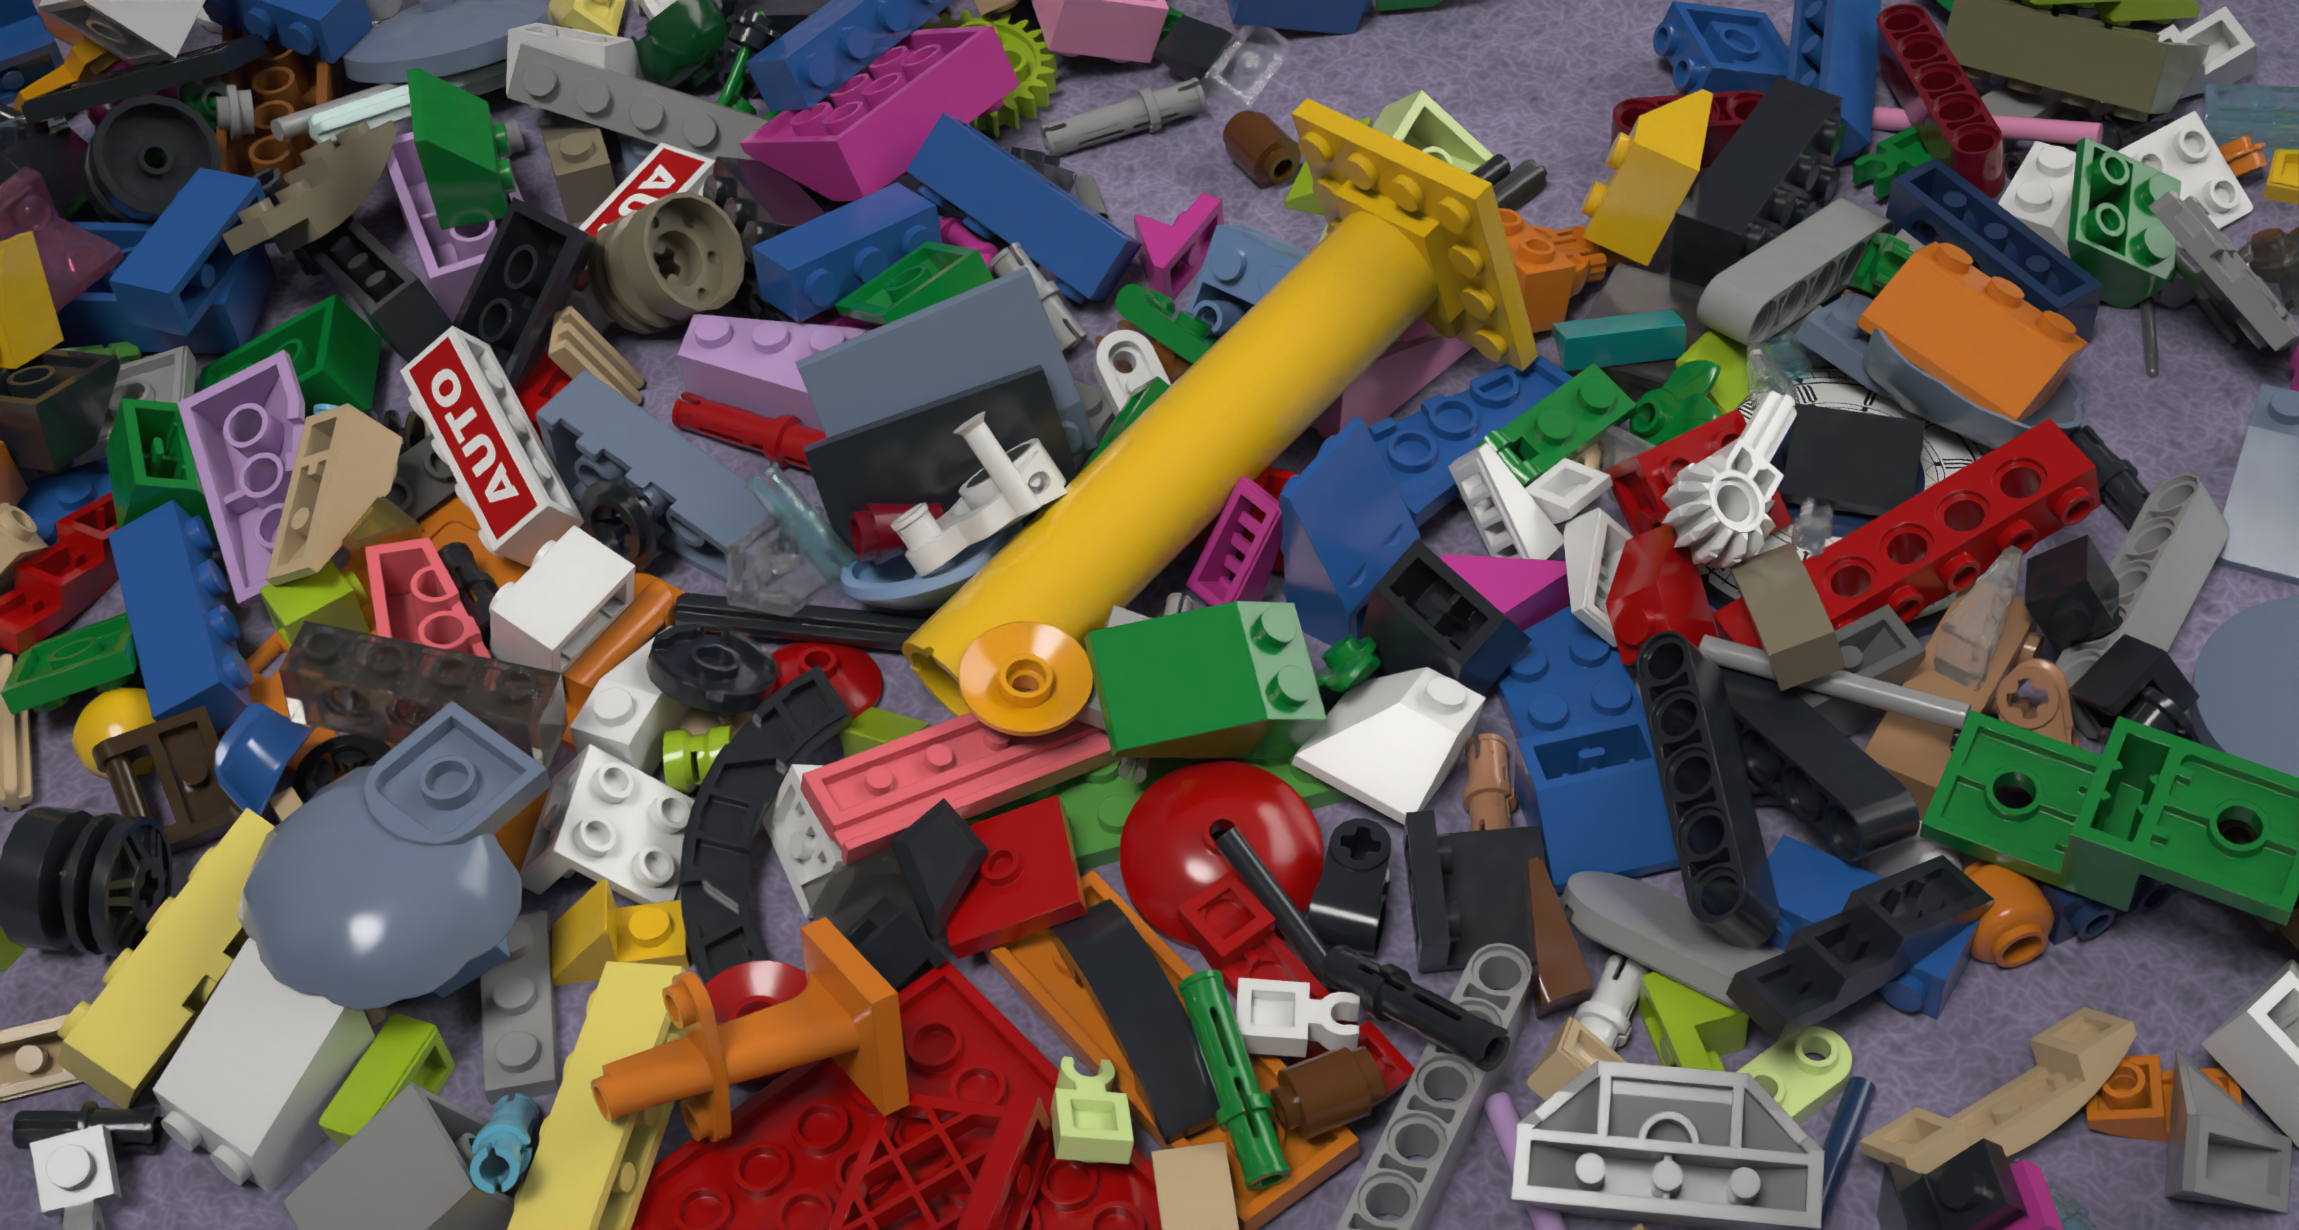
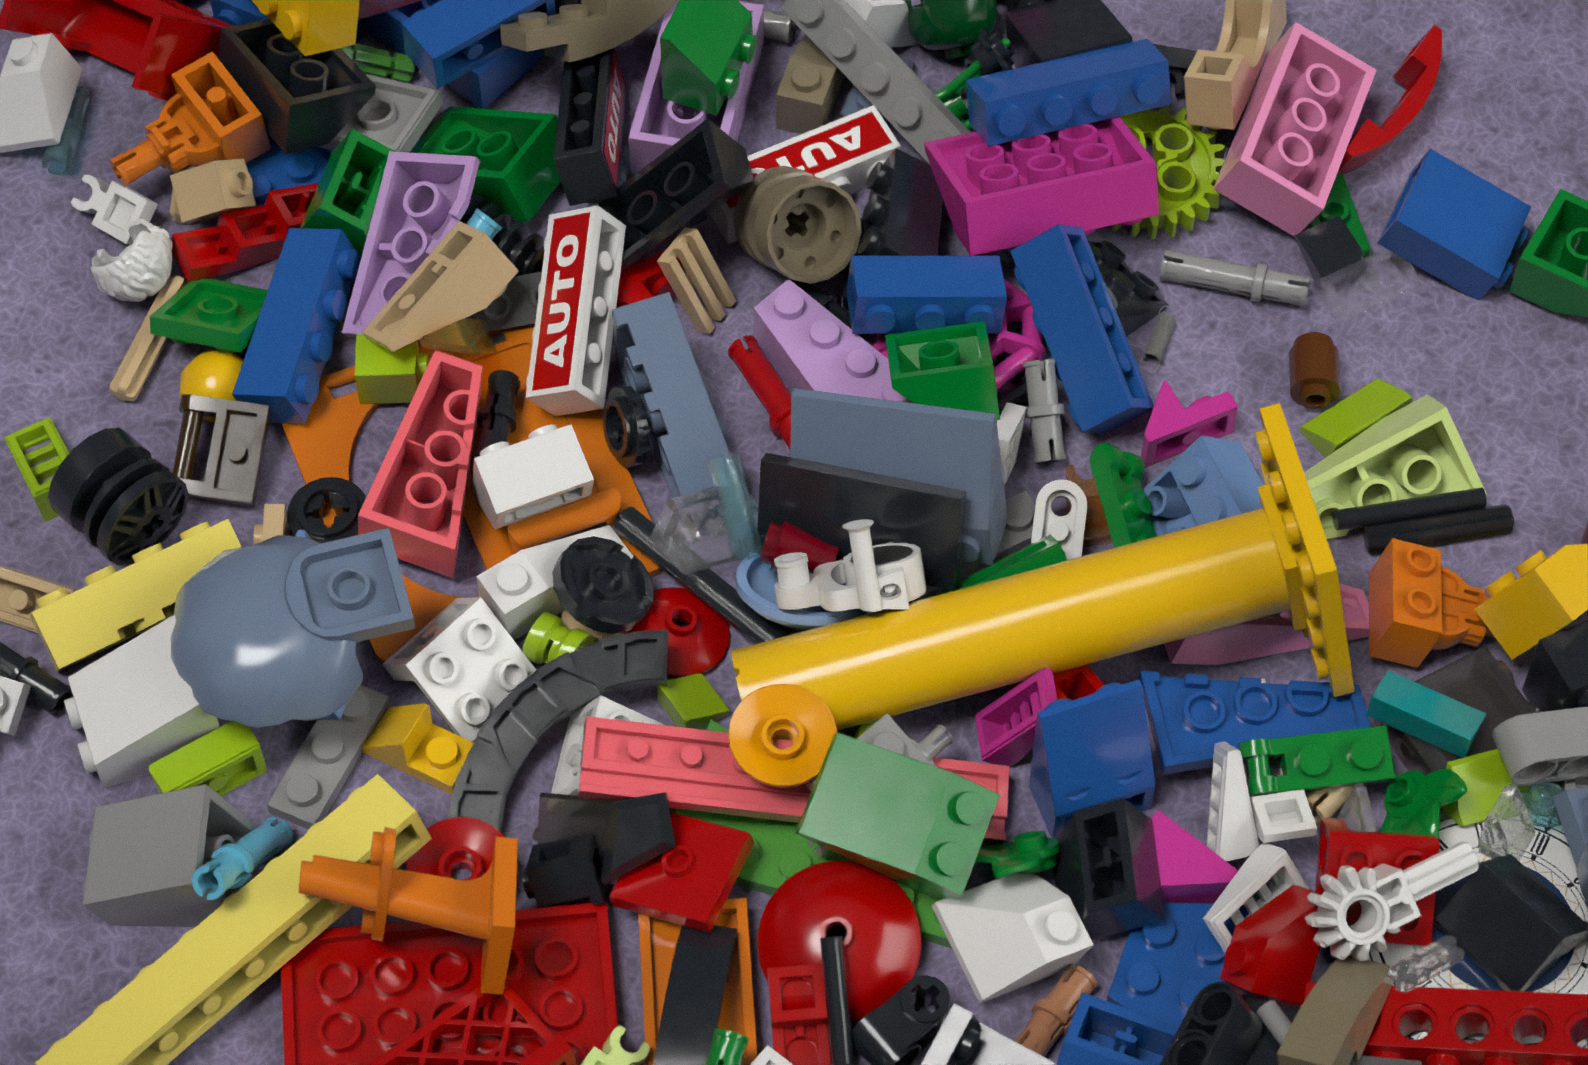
camera: 30 degrees right, 10 degrees up
(255, 755) = (276, 466): blue piece -> none
(394, 686) = (388, 496): clear smoke brick -> none

